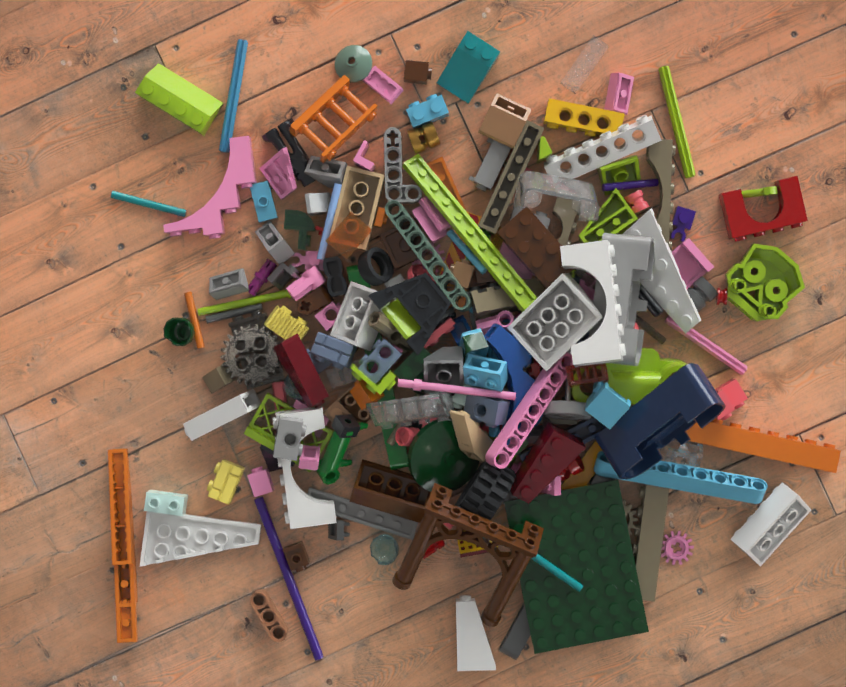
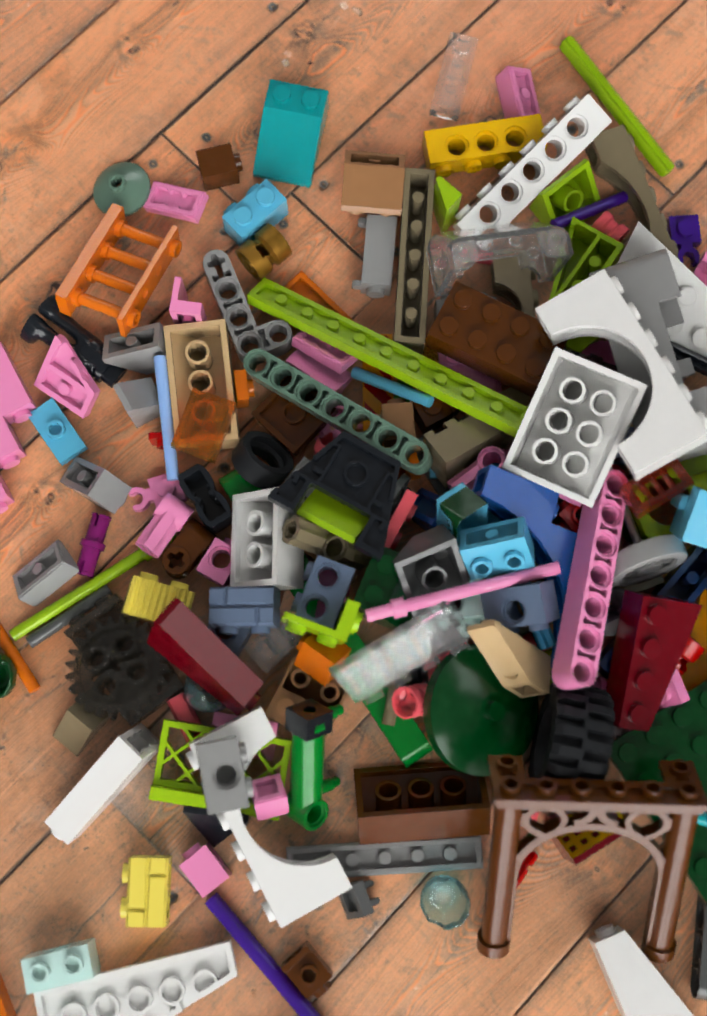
camera: 25 degrees left, 10 degrees down
(283, 275) = (125, 528): flat silver bracket -> none
(301, 222) = (125, 439): clear green brick -> none

